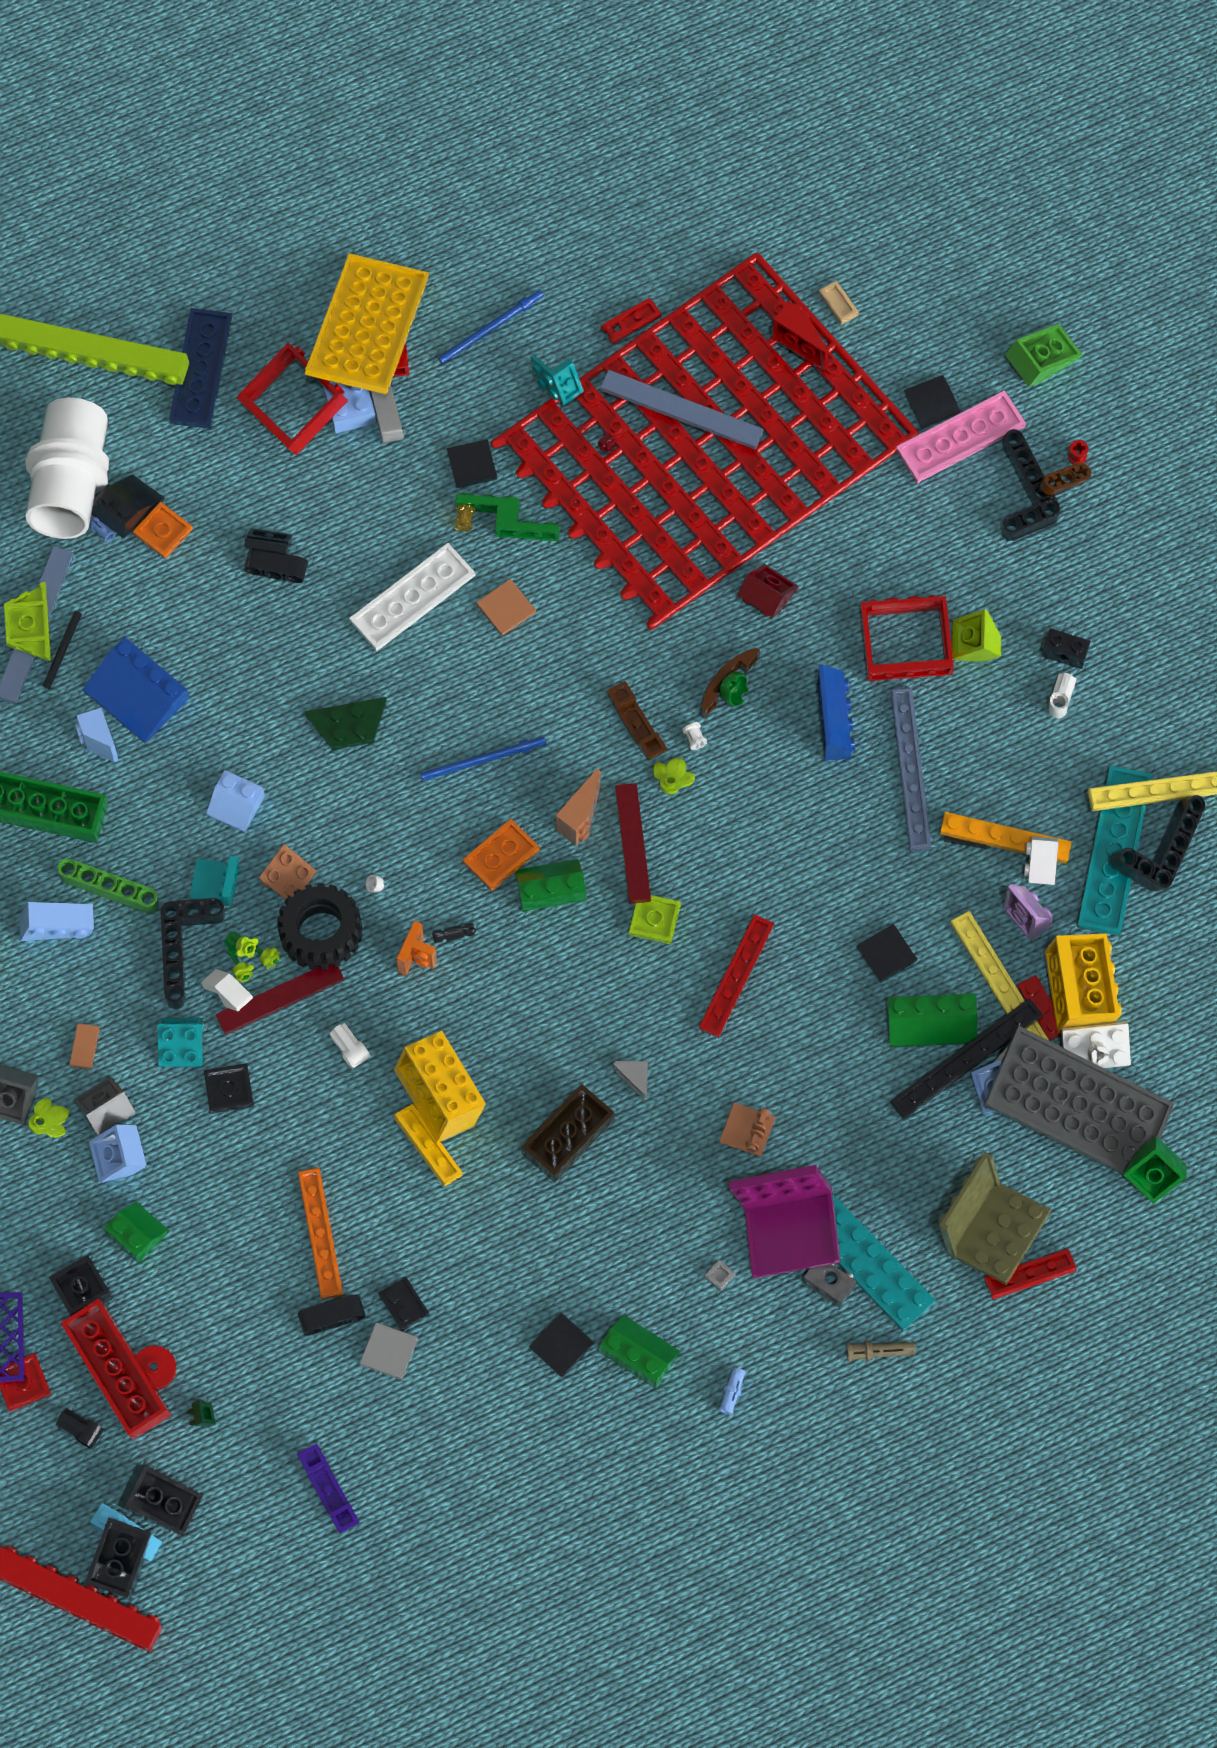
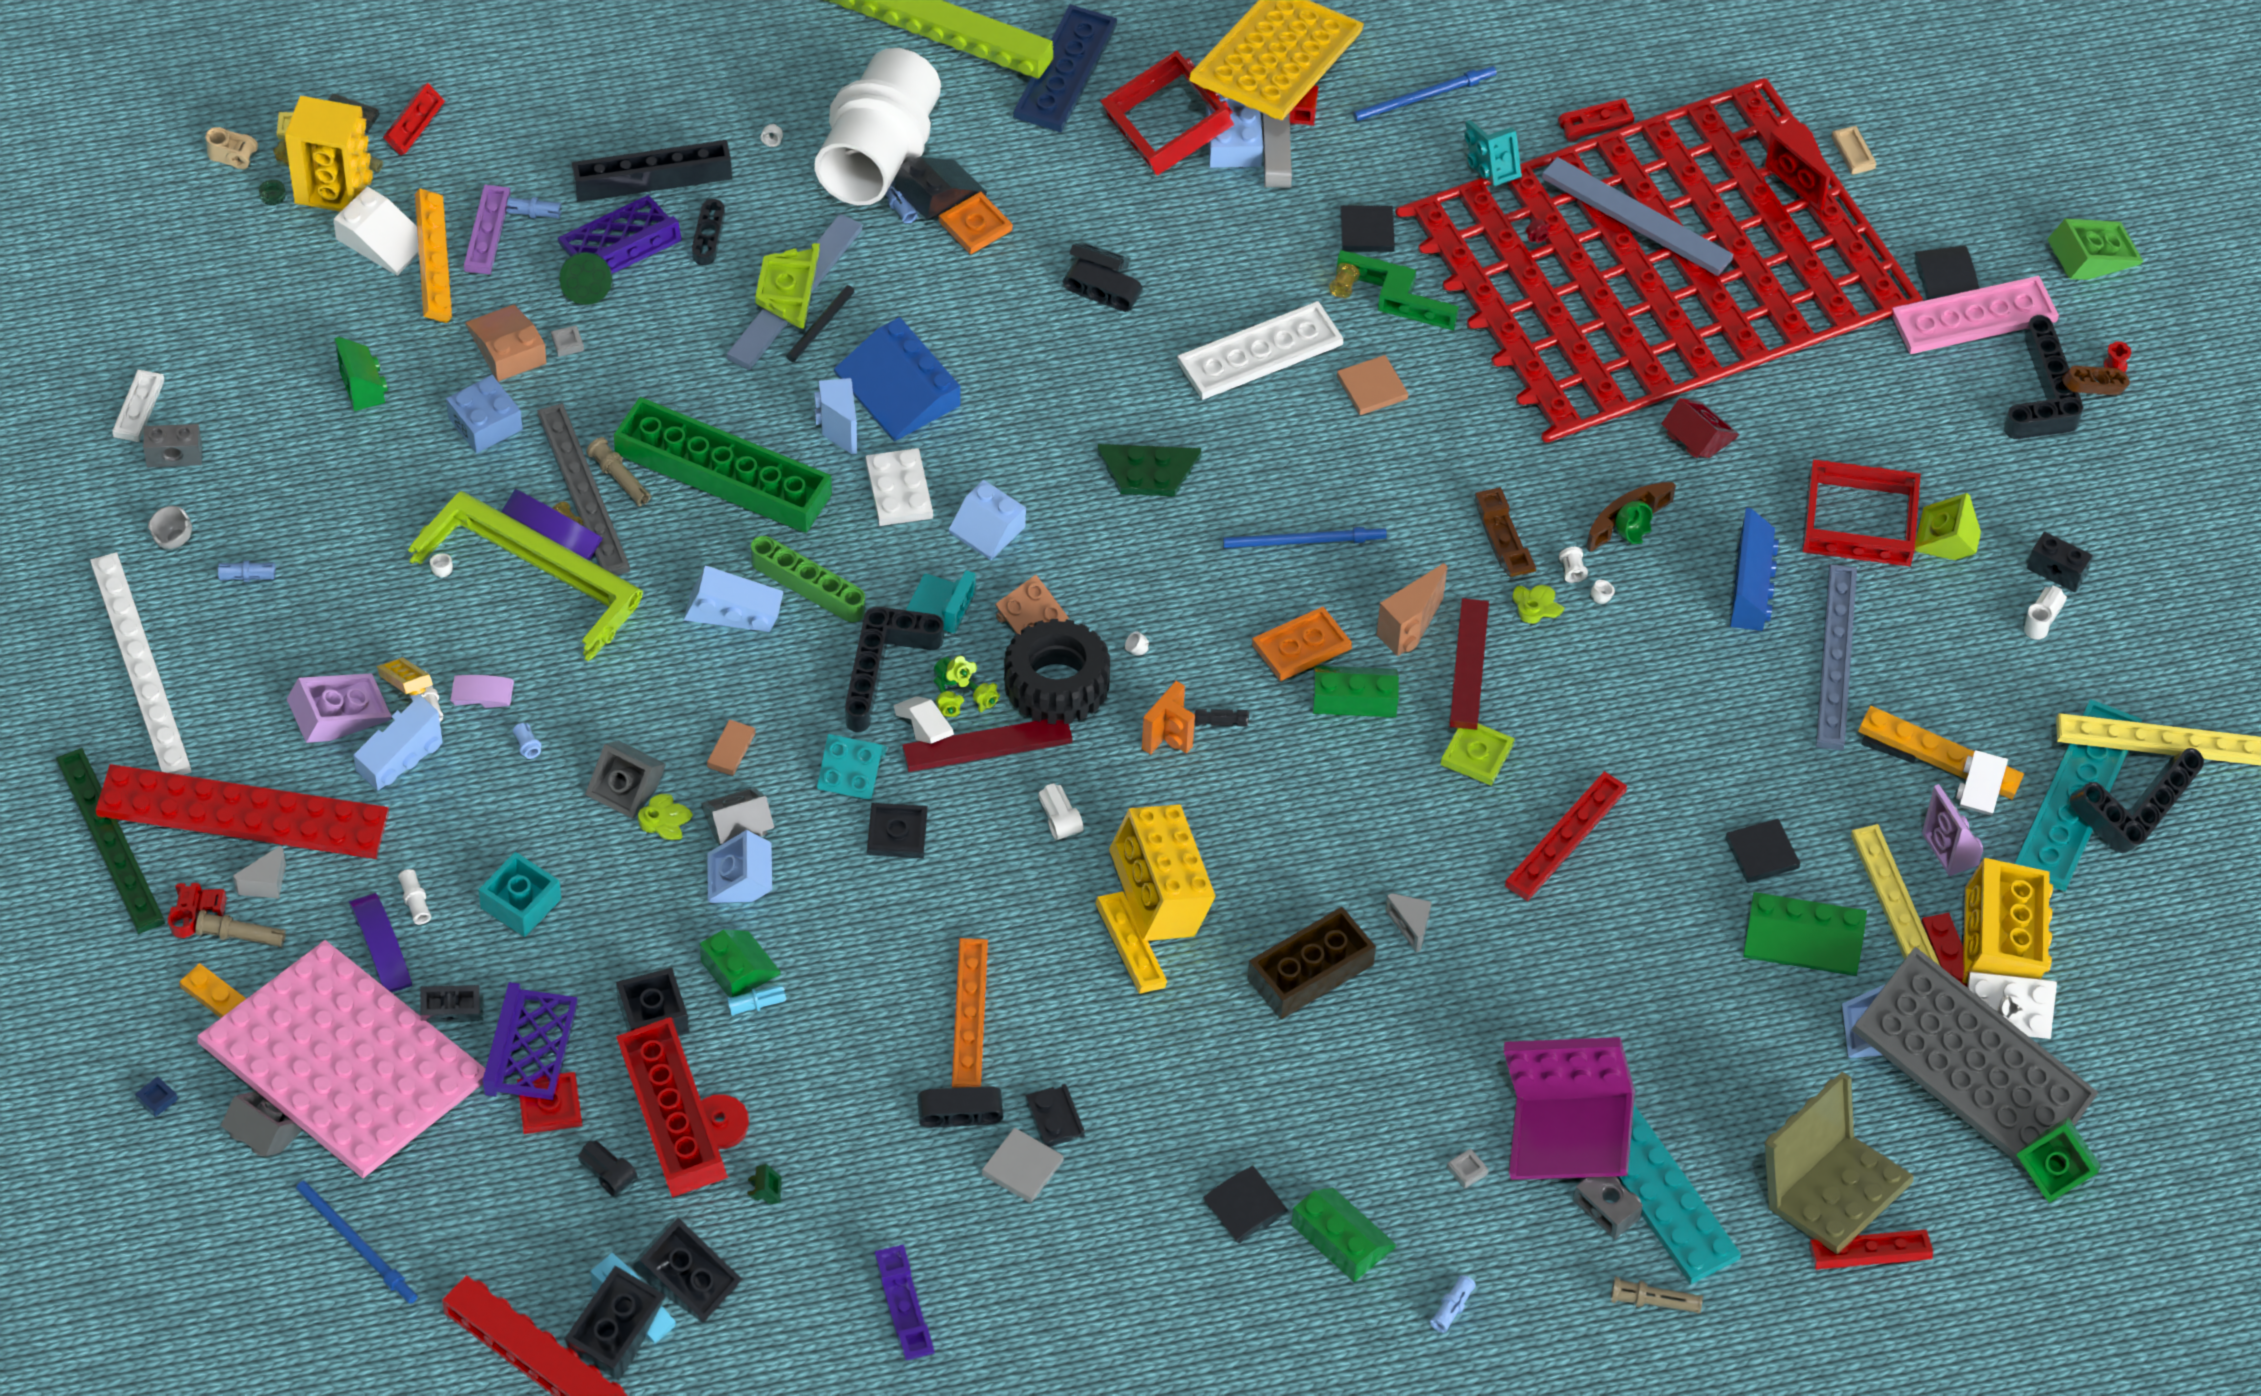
camera: 10 degrees right, 15 degrees down
(156, 1260) = (756, 999): none -> medium azure axle
(158, 784) = (899, 487): none -> white plate
(718, 752) = (1602, 591): none -> white hinge
(747, 1129) = (1541, 1009): nougat hinge -> none
(965, 1059) = (1830, 989): black tile -> none

